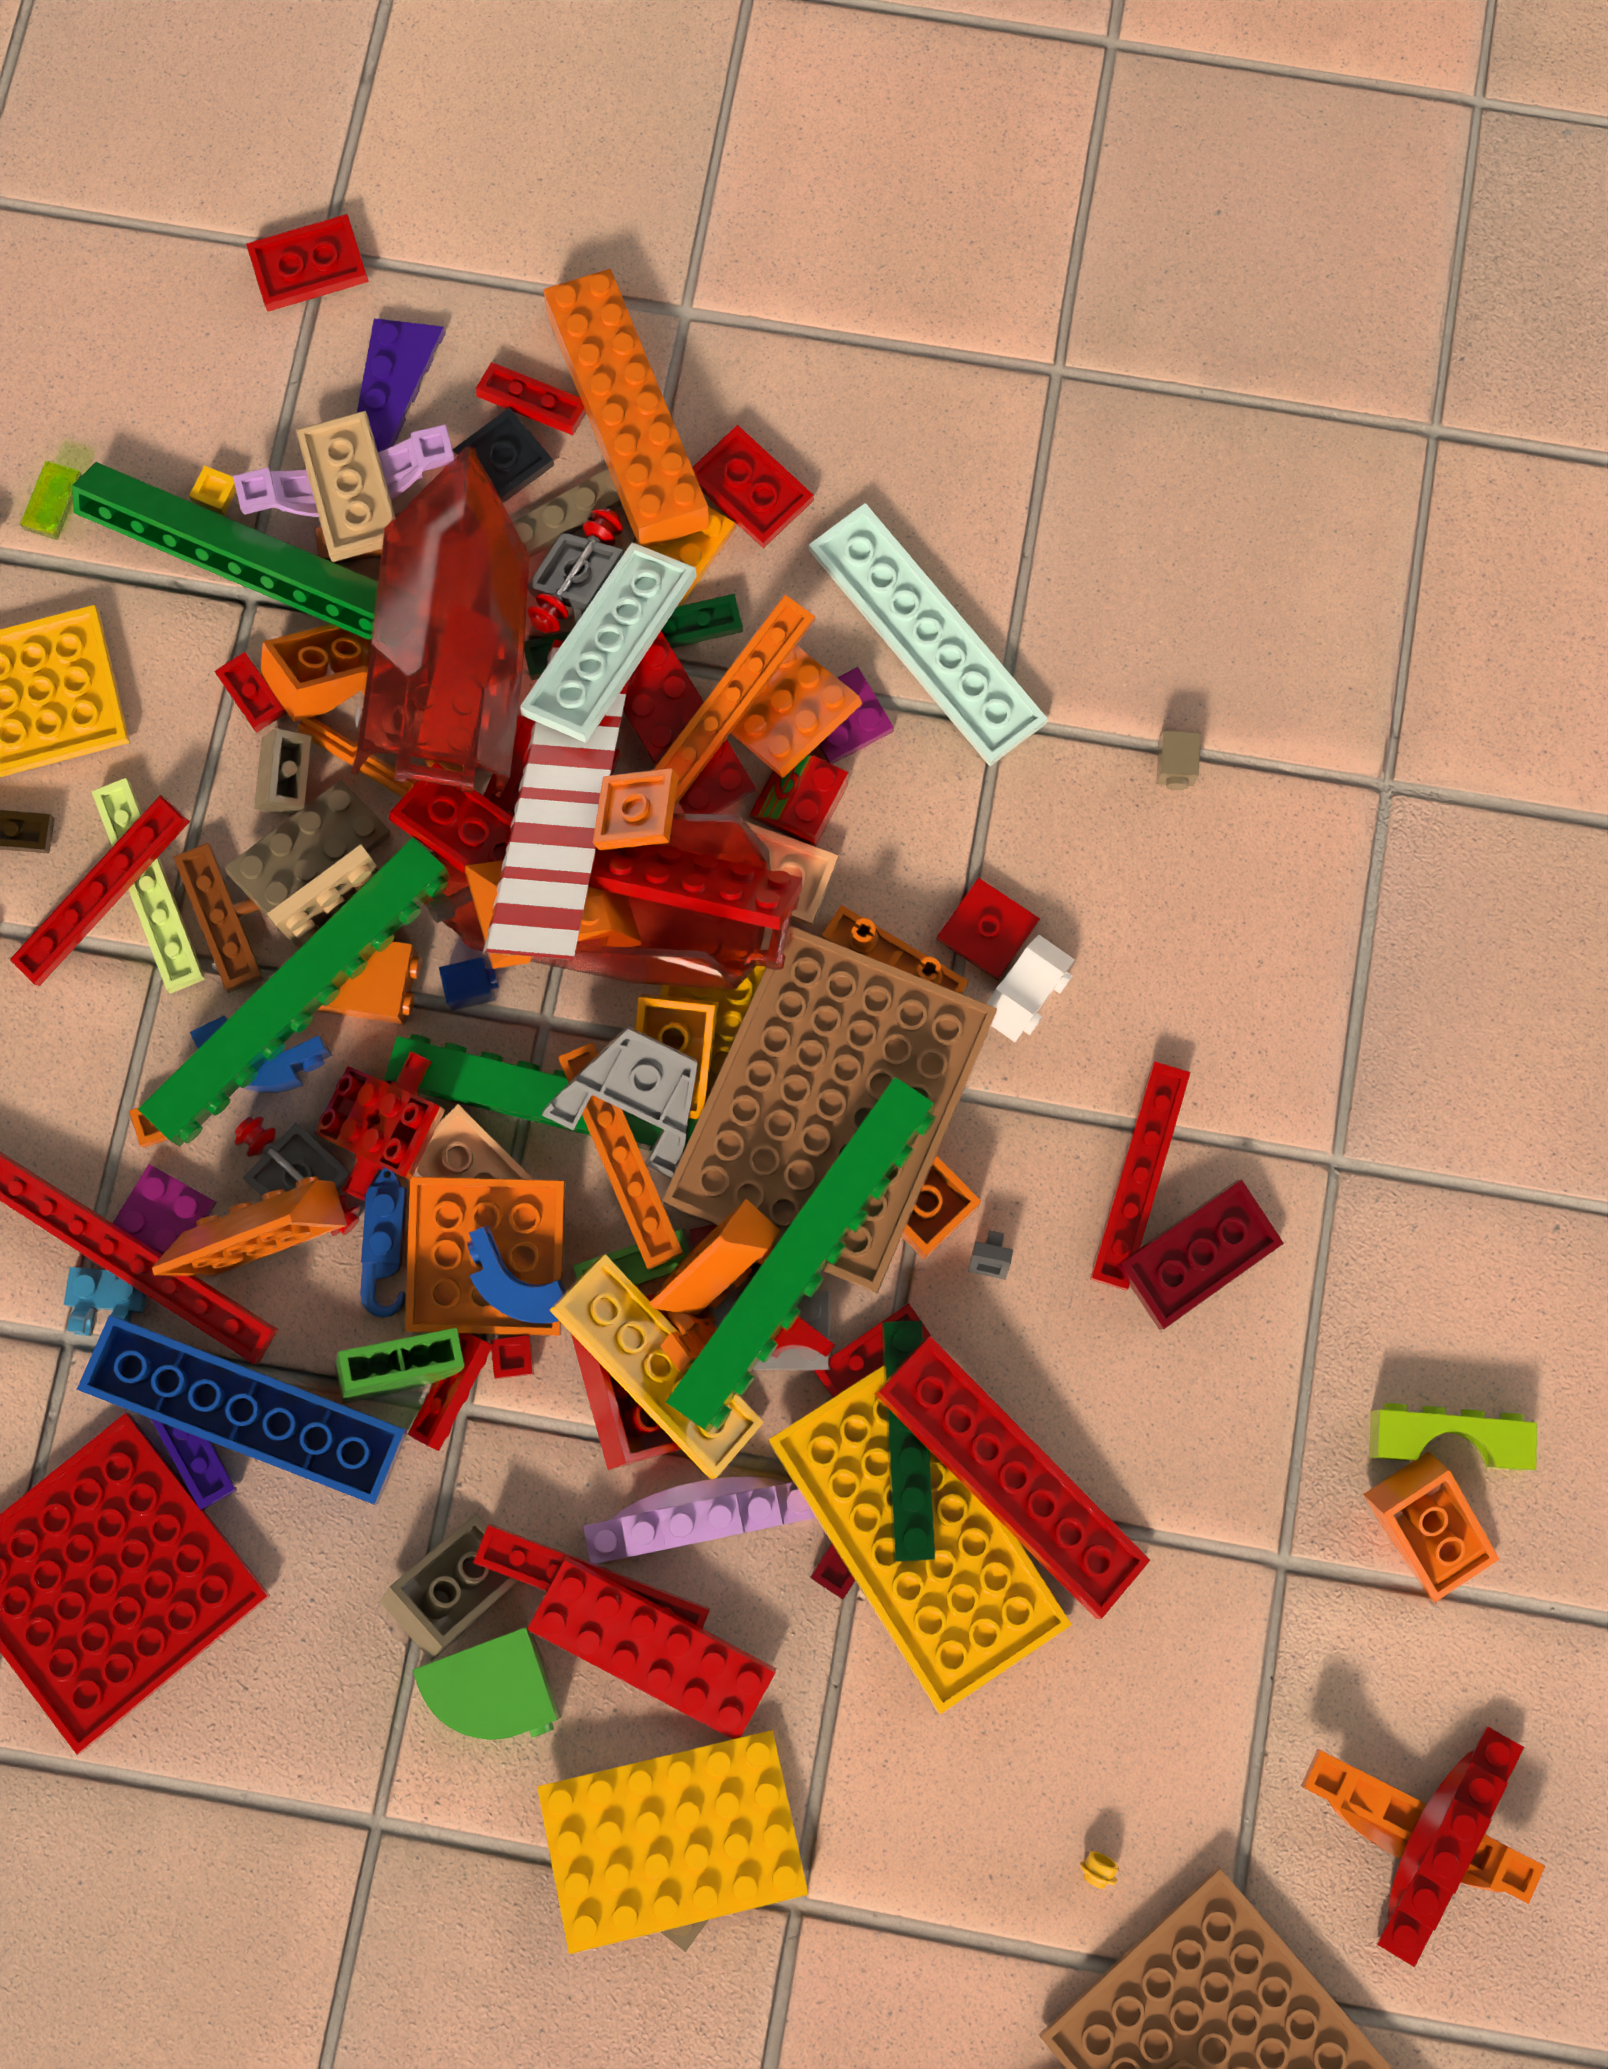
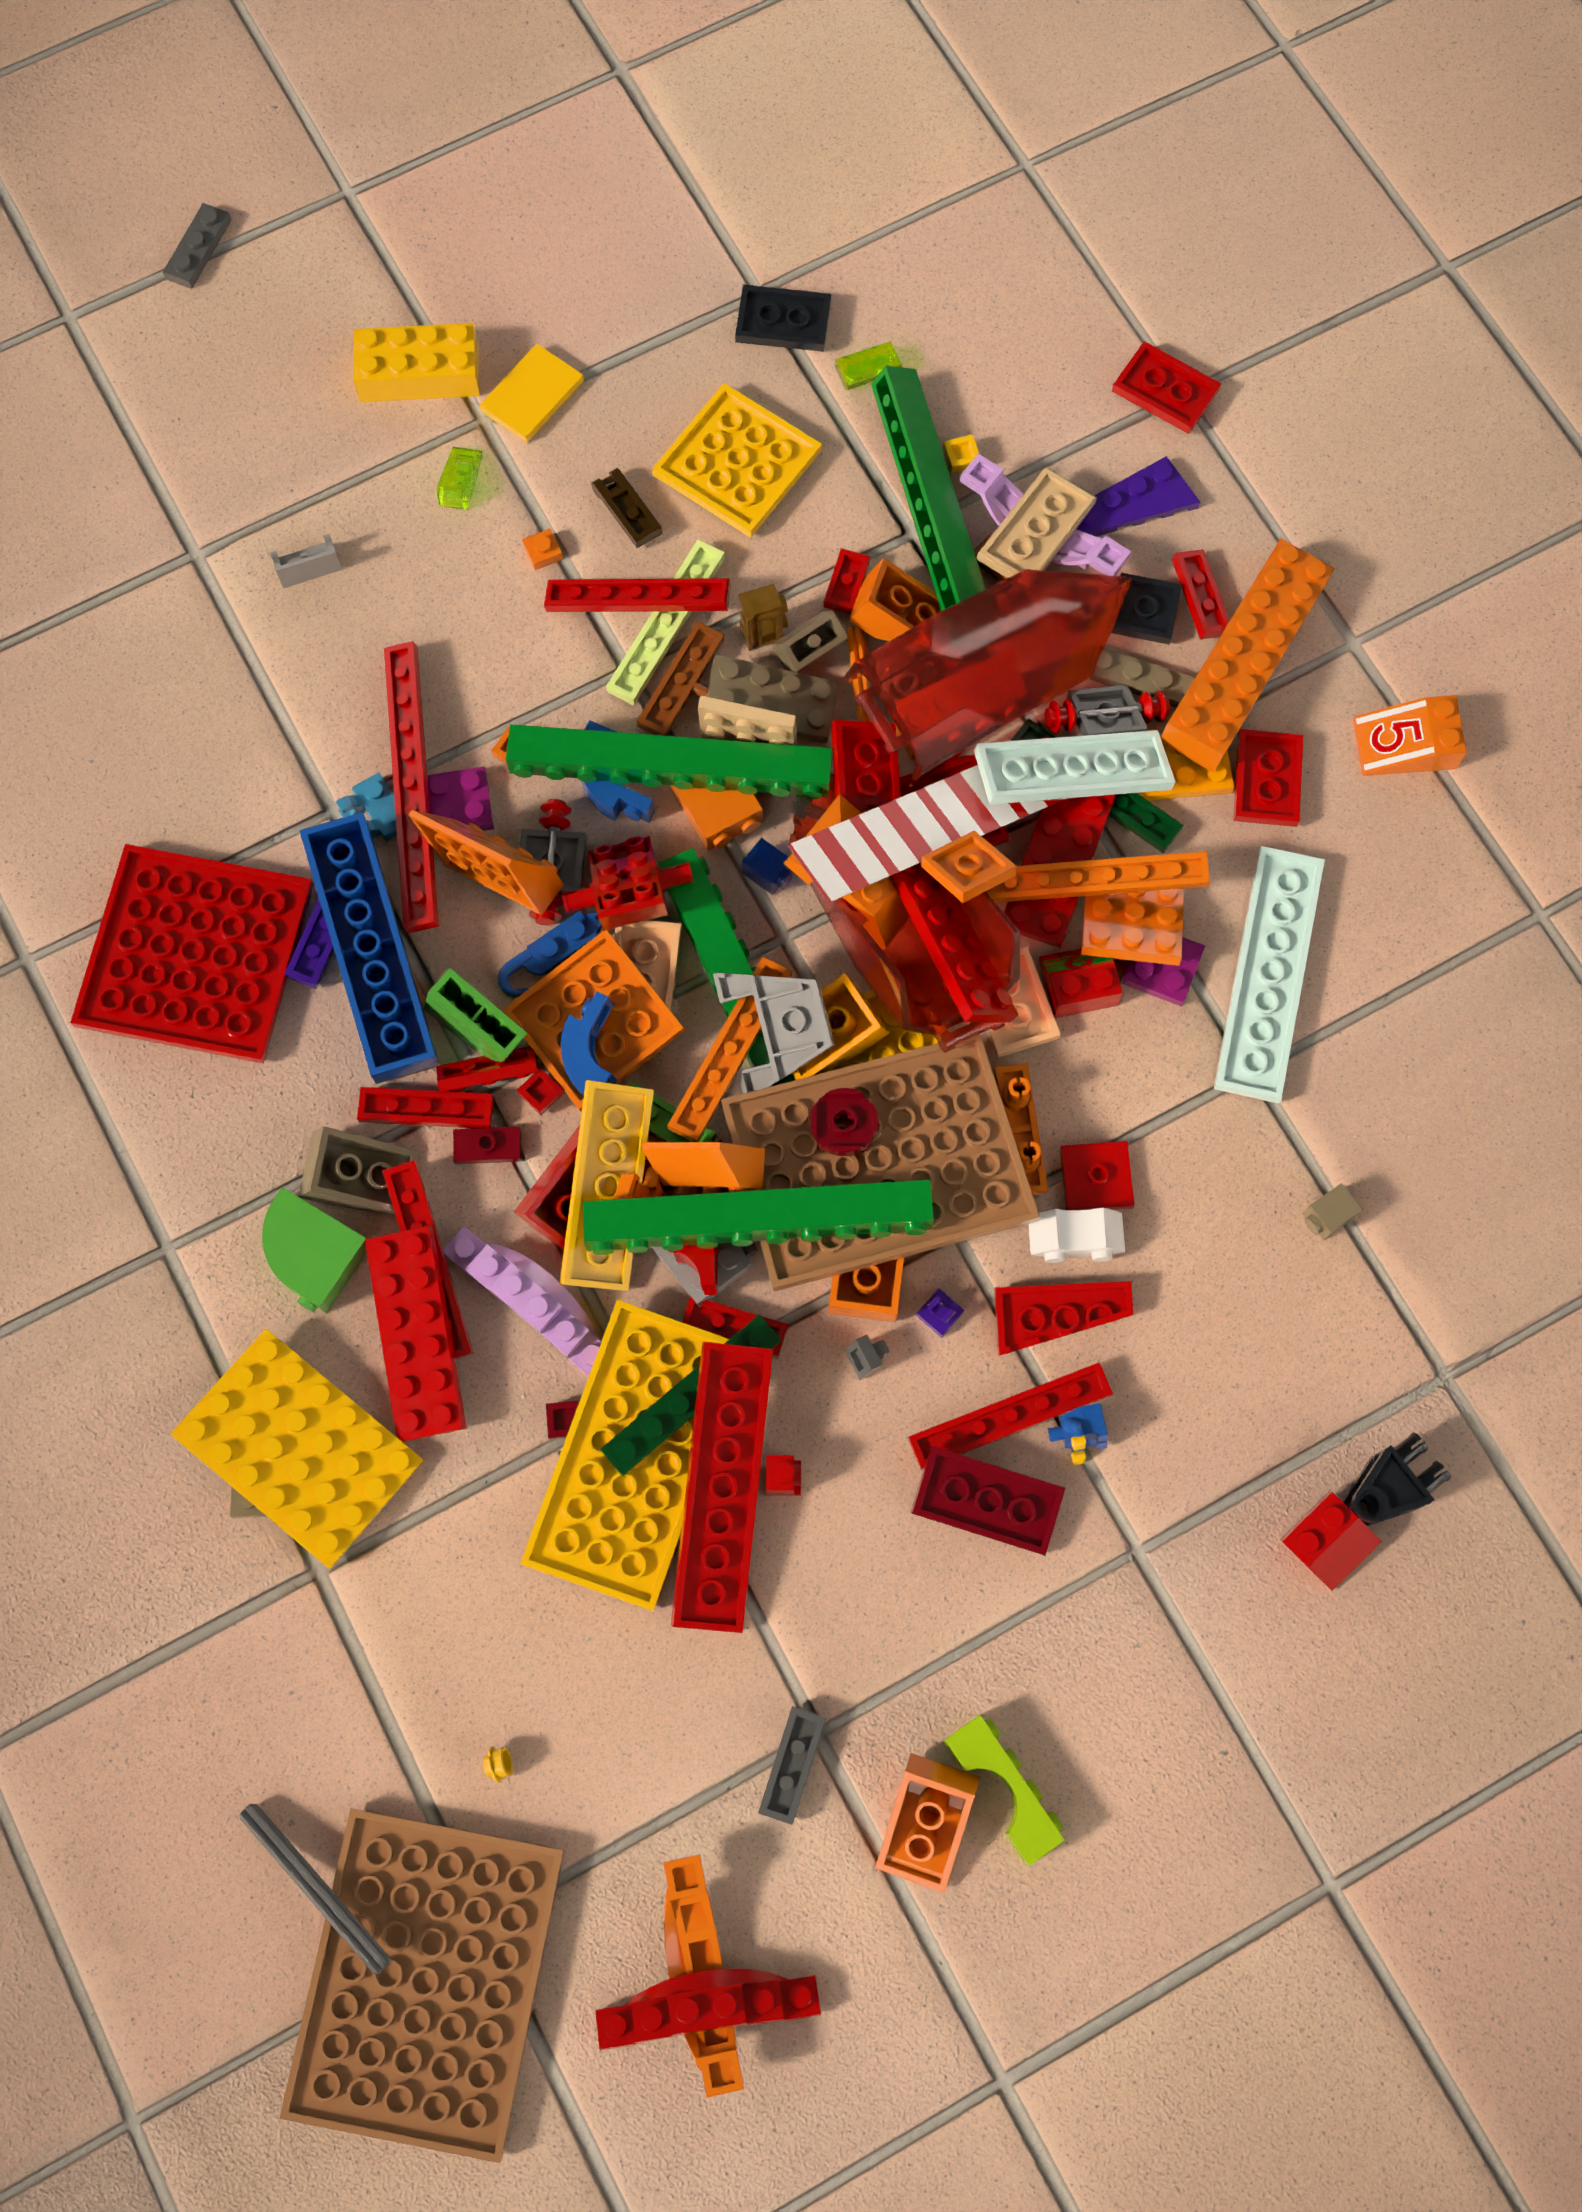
camera: 50 degrees right, 5 degrees down
(222, 794) = (762, 615): none -> pearl gold window
(440, 1475) = (425, 1107): none -> red plate
(522, 1445) = (487, 1145): none -> dark red plate
(775, 1131) = (847, 1141): none -> dark red plate
(814, 338) = (1411, 737): none -> orange slope
(1001, 1161) = (940, 1312): none -> dark purple tile
(1040, 1415) = (783, 1475): none -> red brick
(1073, 1071) = (1052, 1311): none -> red wing
(1200, 1125) = (1081, 1429): none -> blue piece
(1296, 1606) = (792, 1765): none -> dark grey plate
(1448, 910) = (1391, 1486): none -> black piece
(1451, 995) = (1331, 1540): none -> red slope

